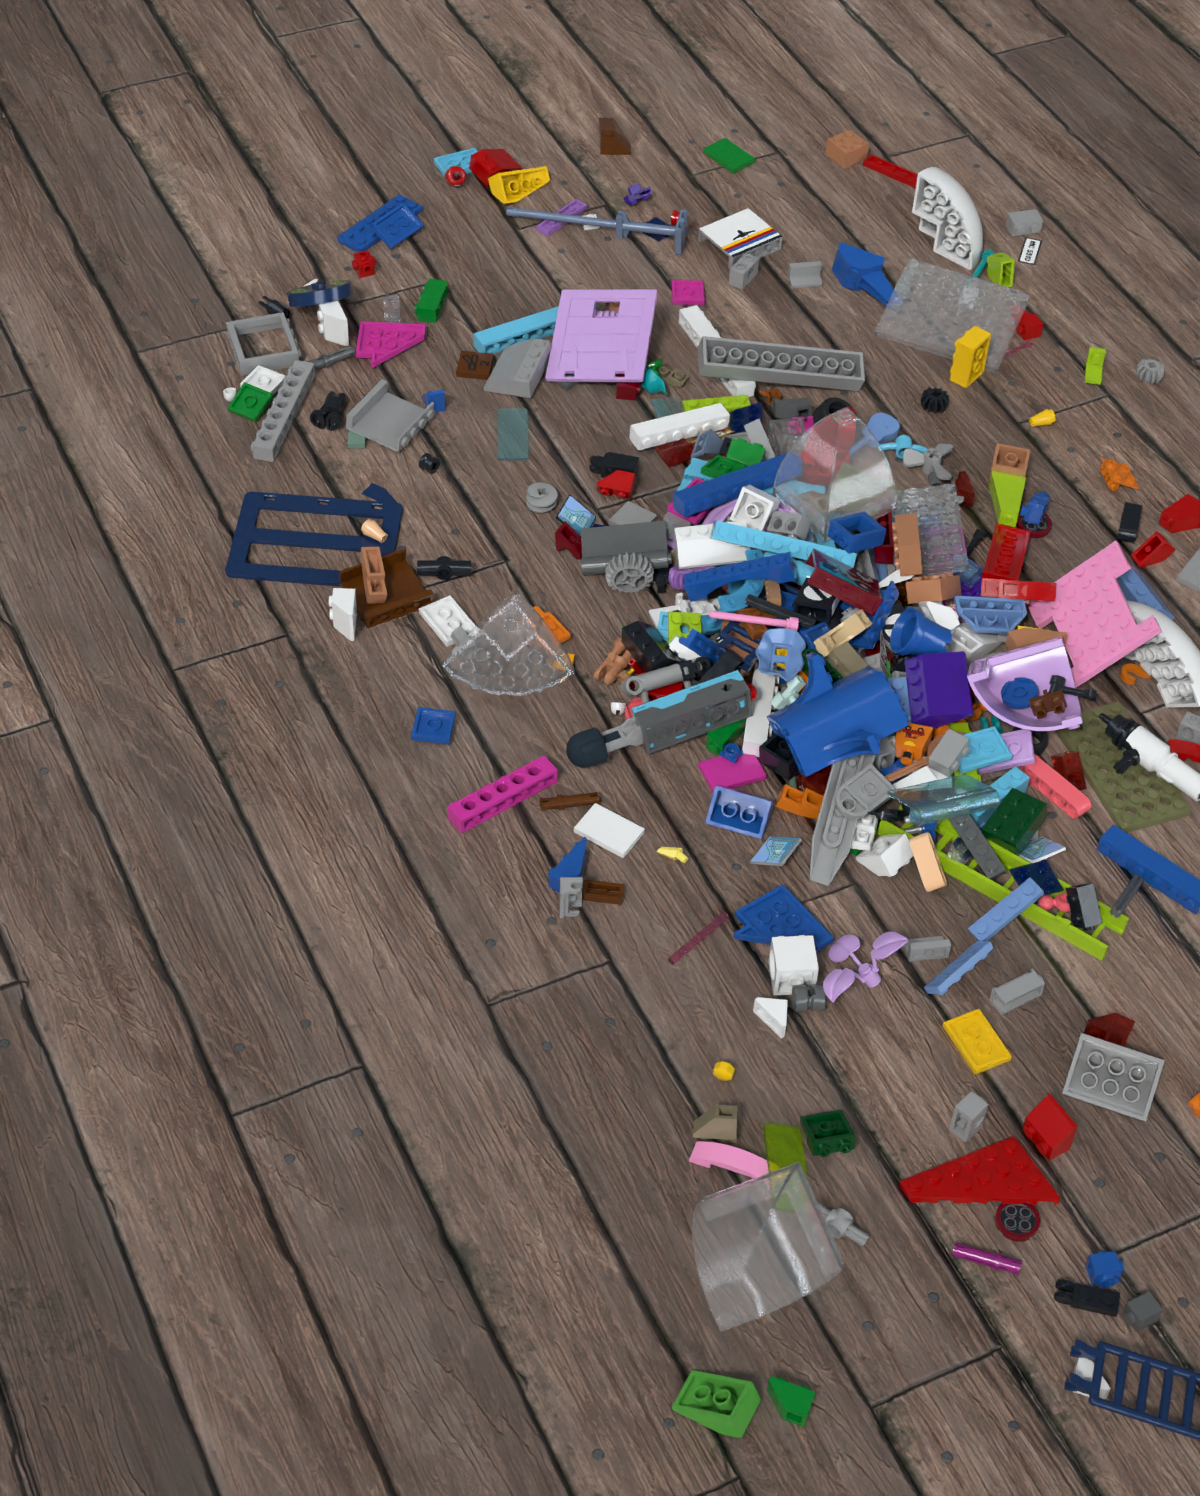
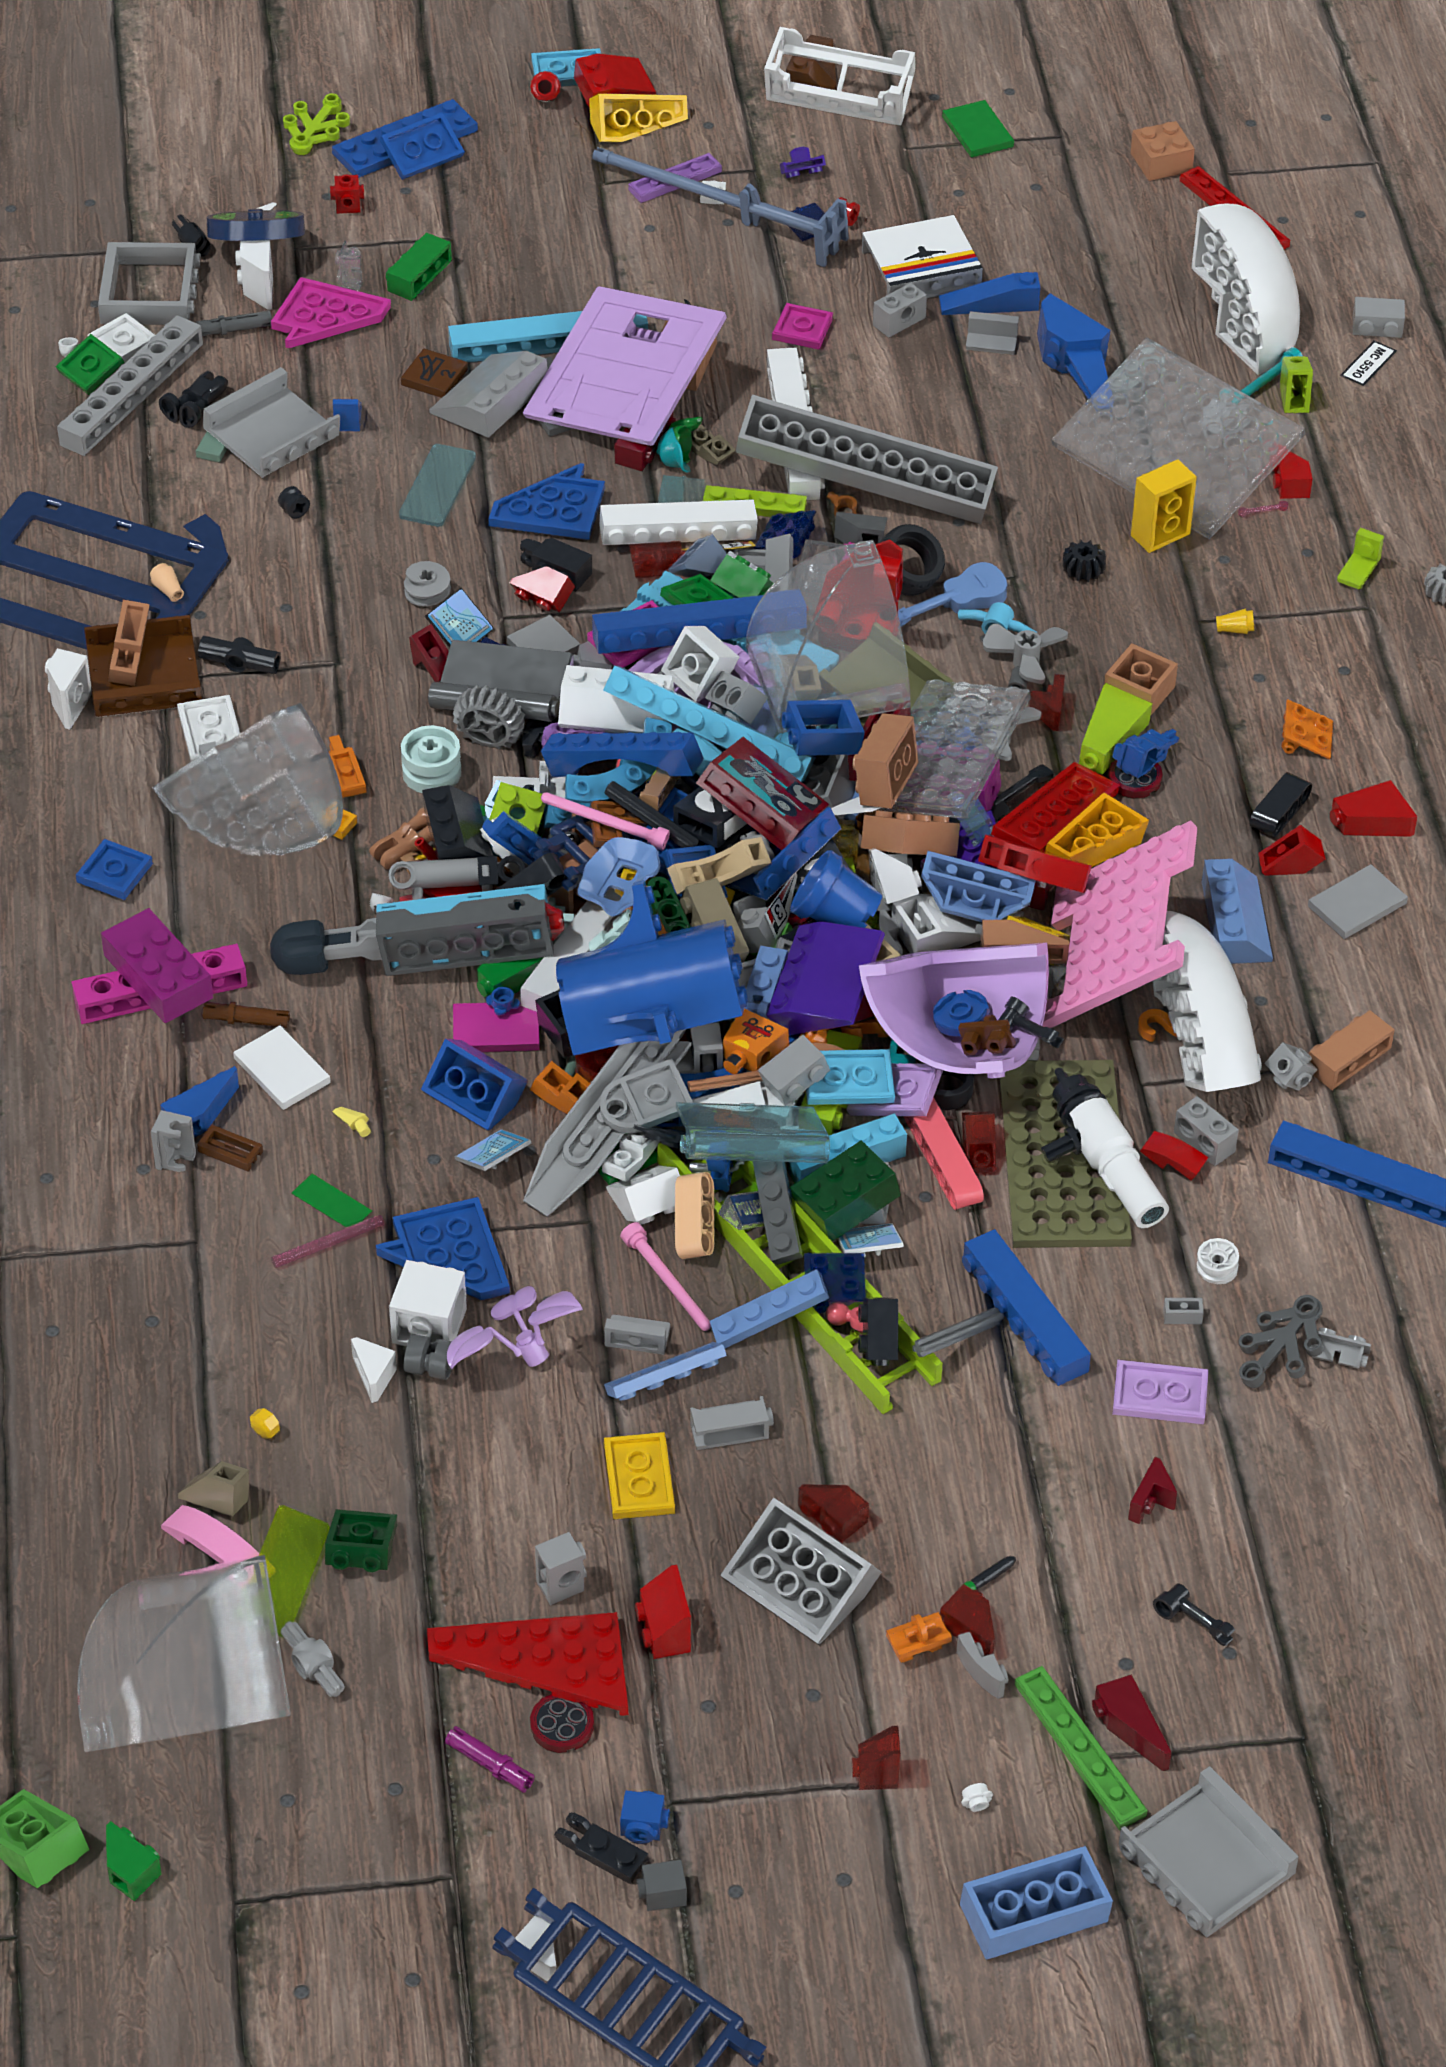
camera: 20 degrees right, 0 degrees up
(316, 238) = (302, 142): none -> lime plant
(504, 782) = (157, 965): none -> magenta brick
(594, 432) = (555, 506): none -> blue wing
(602, 152) = (887, 108): none -> white windscreen
(604, 608) = (430, 758): none -> light aqua wheel
(685, 911) = (331, 1201): none -> green sticker
(797, 251) = (1004, 294): none -> blue wedge
(893, 885) = (635, 1237): none -> bright pink piece
(1040, 560) = (1099, 832): none -> light orange wedge

